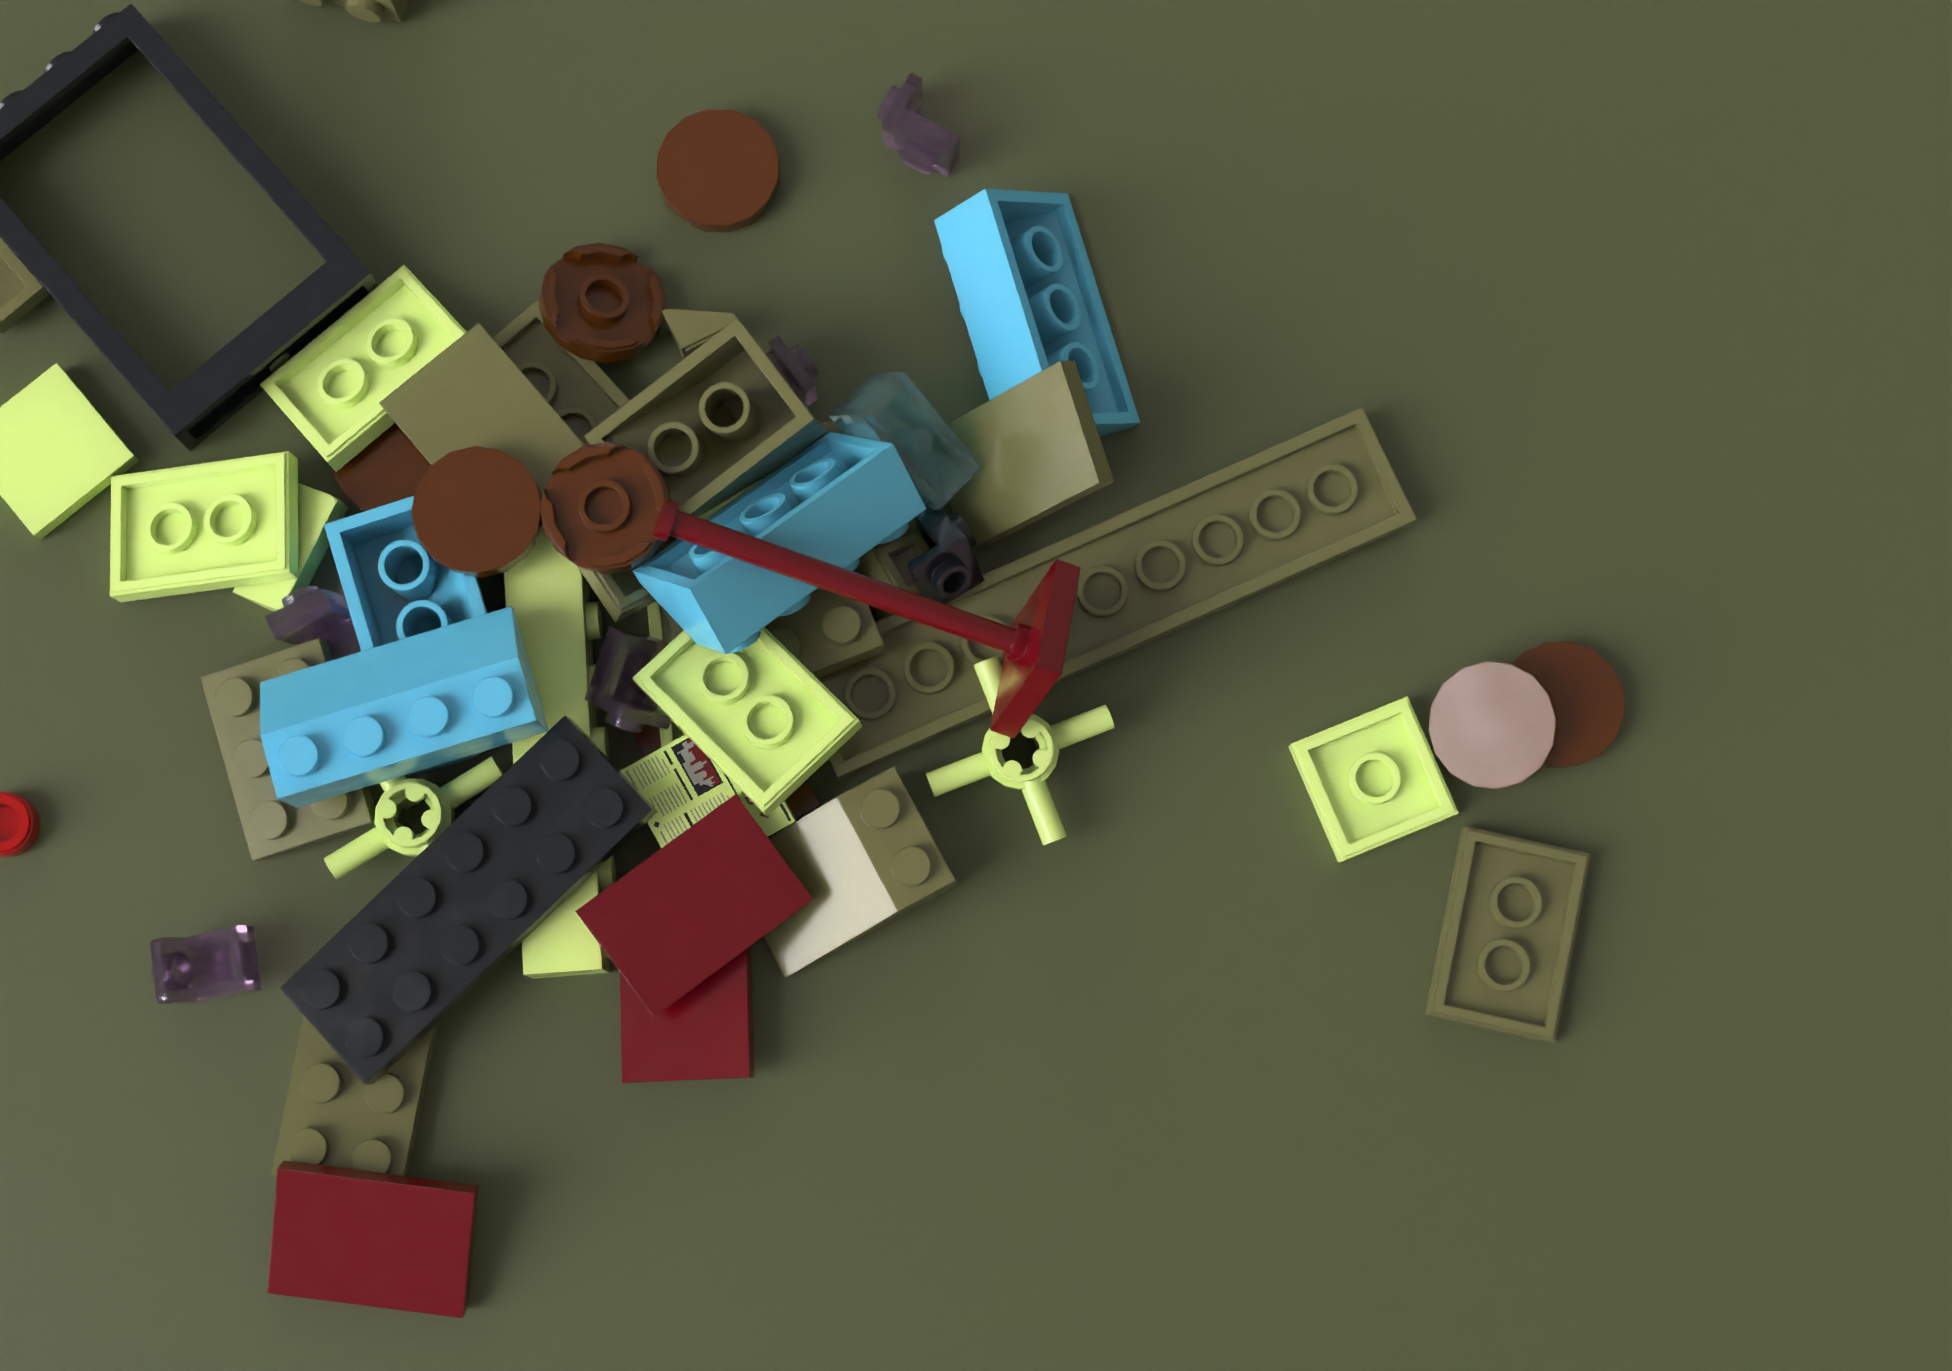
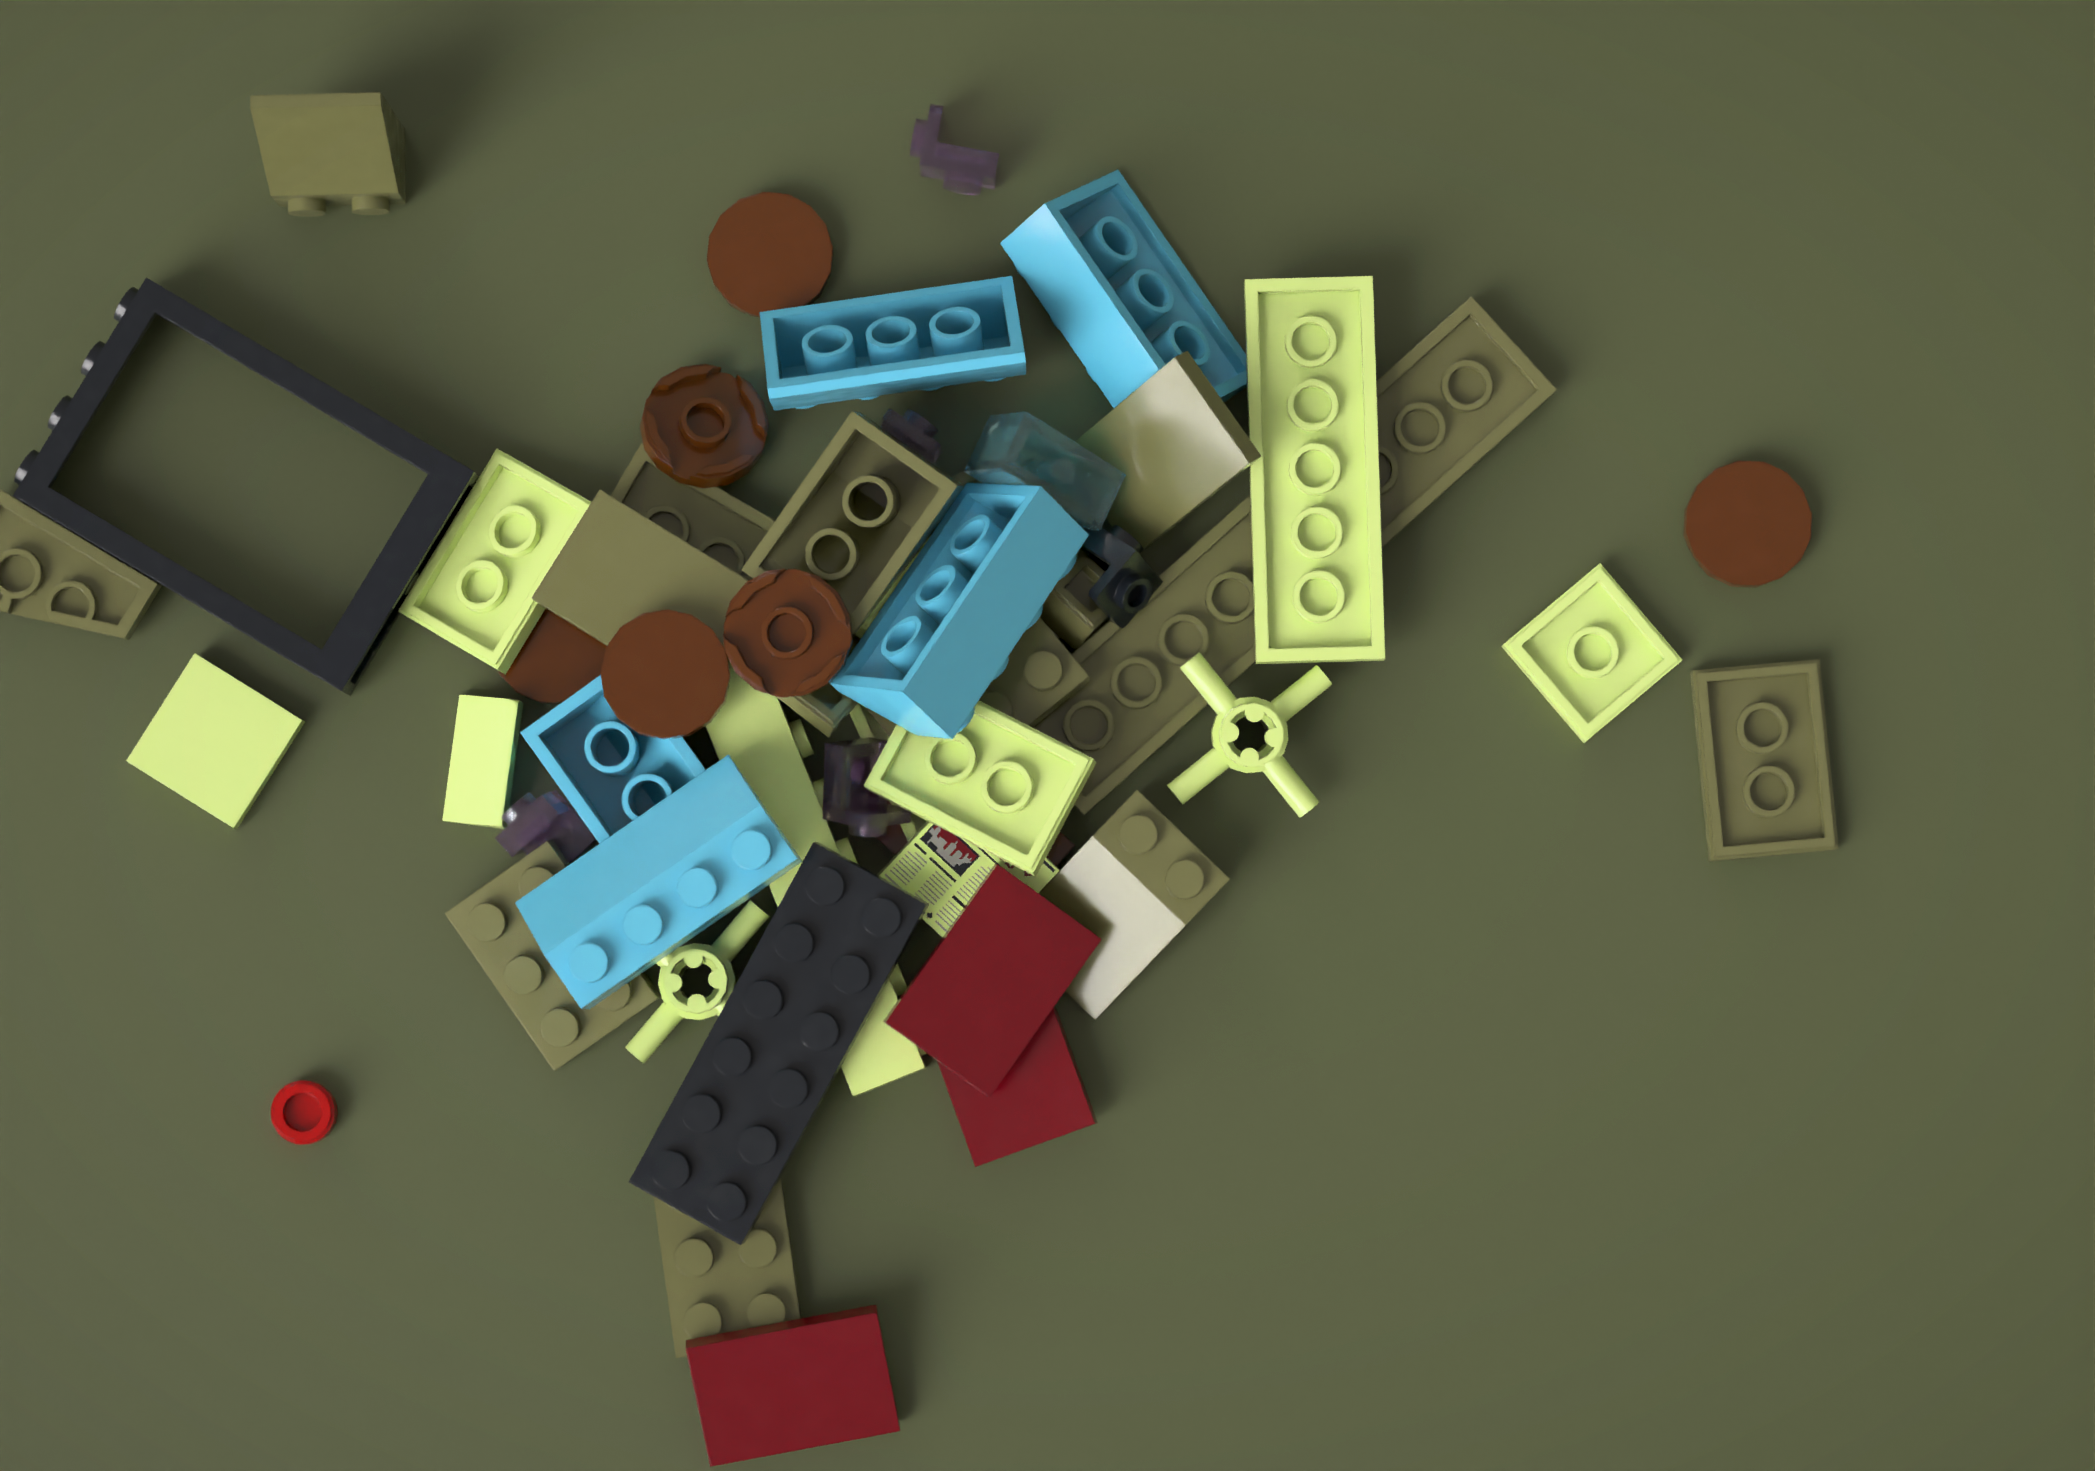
camera: 15 degrees left, 5 degrees up
(204, 527) = (397, 768): yellowish green tile -> none
(205, 966) = (548, 1183): clear purple bracket -> none
(694, 328) = (809, 426): olive slope -> none
(800, 280) = (892, 343): none -> medium azure slope
(1030, 646) = (1232, 634): dark red tile -> none
(1163, 518) = (1316, 470): none -> yellowish green plate
(1493, 724) = (1690, 565): tile -> none

